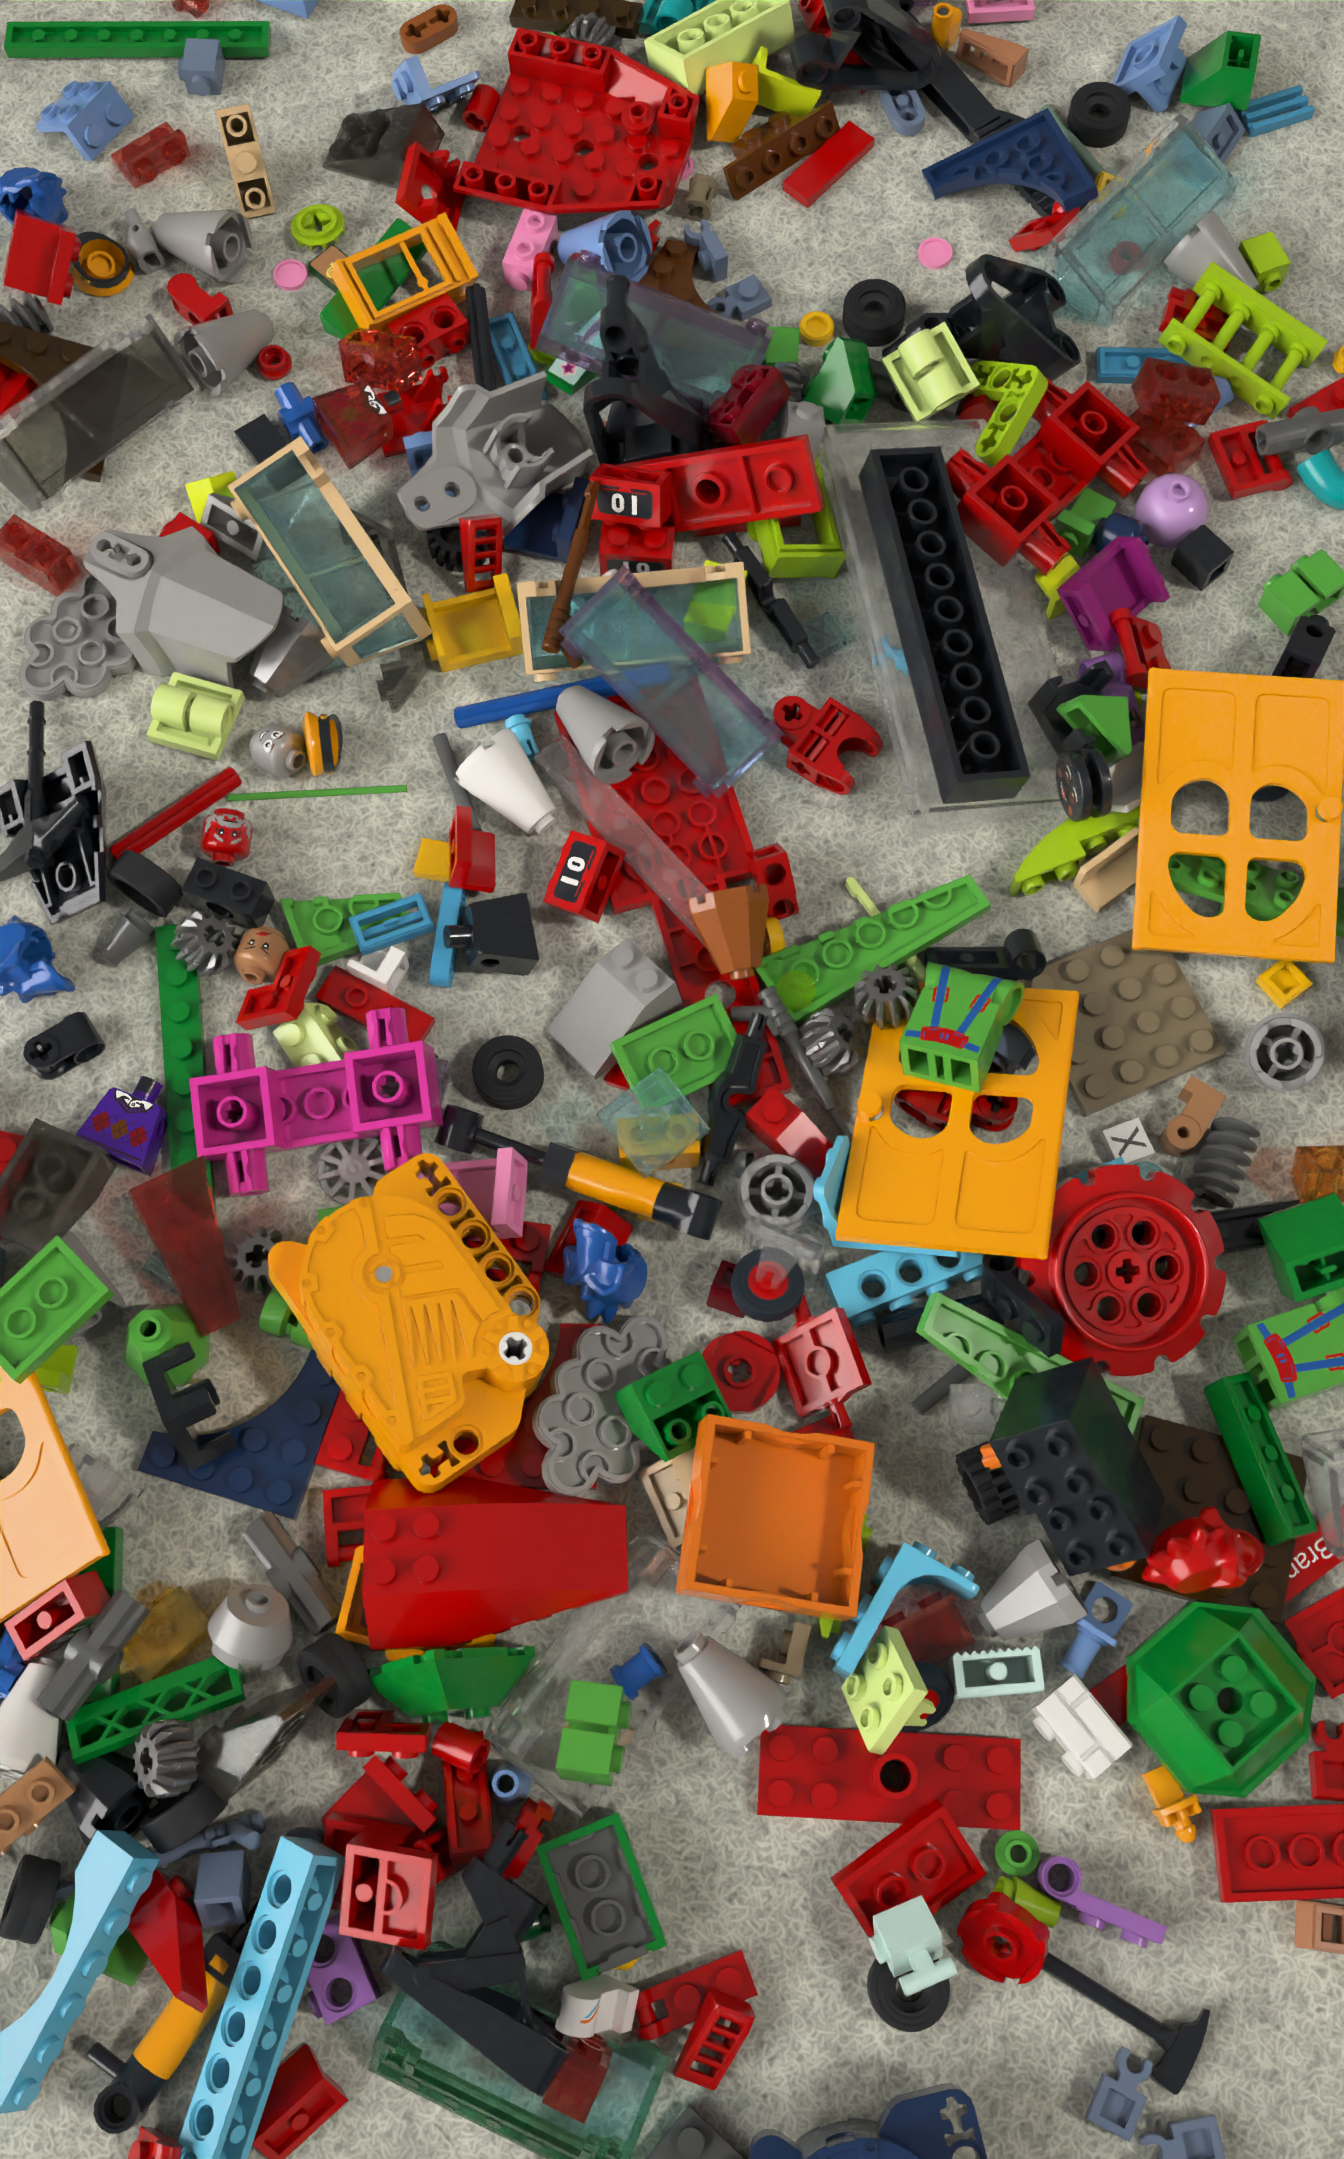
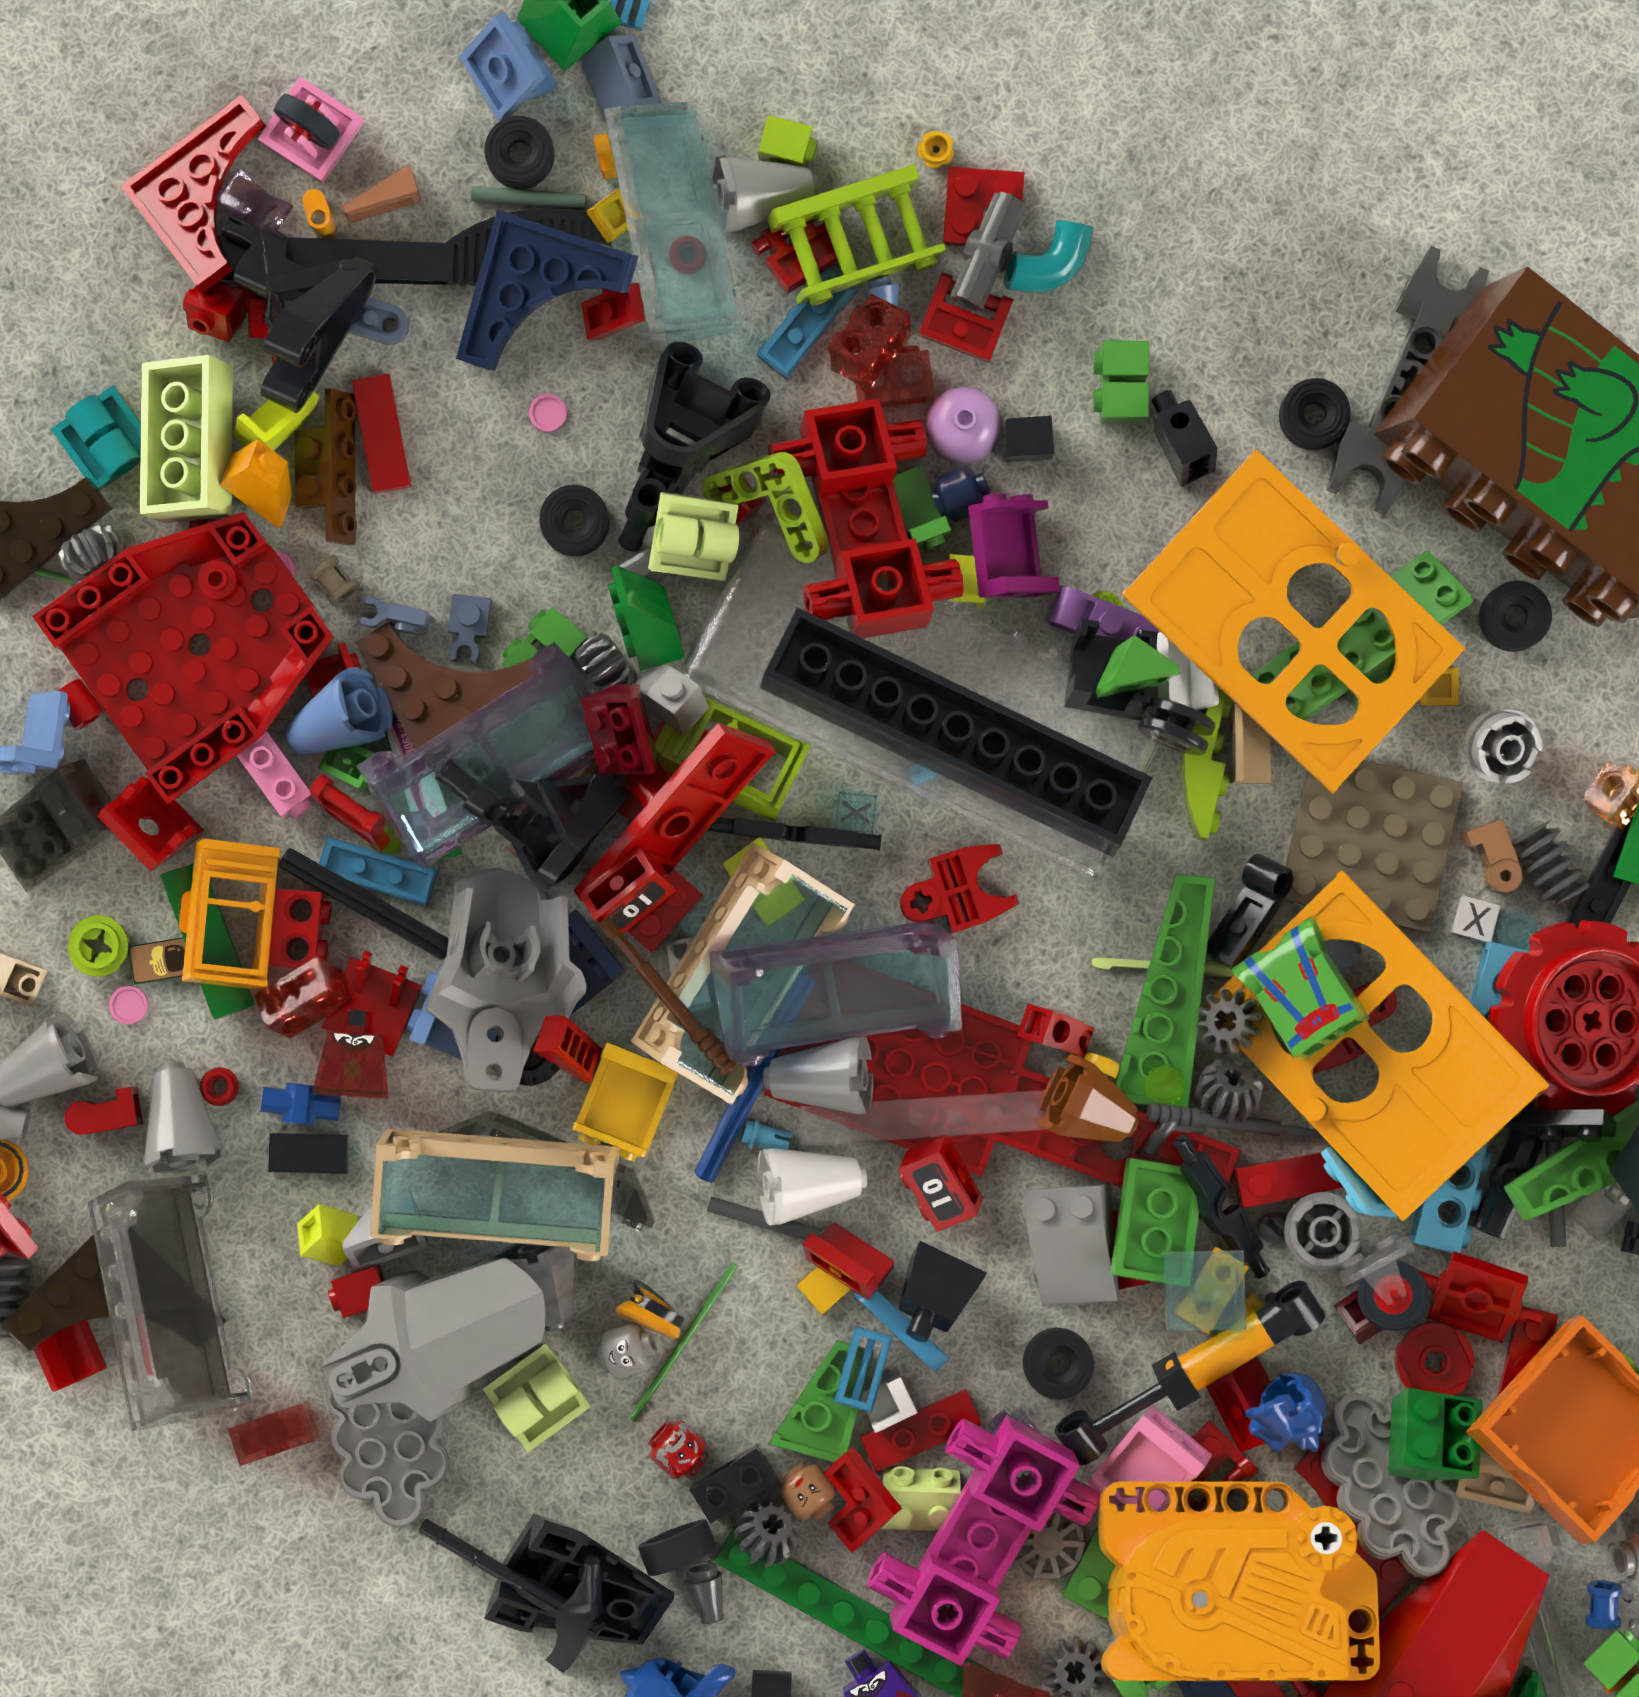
camera: 55 degrees left, 15 degrees up
(178, 813) = (618, 1475): red axle -> none
(816, 329) = (548, 580): yellow tile -> none
(1139, 645) = (1080, 565): red plate -> none

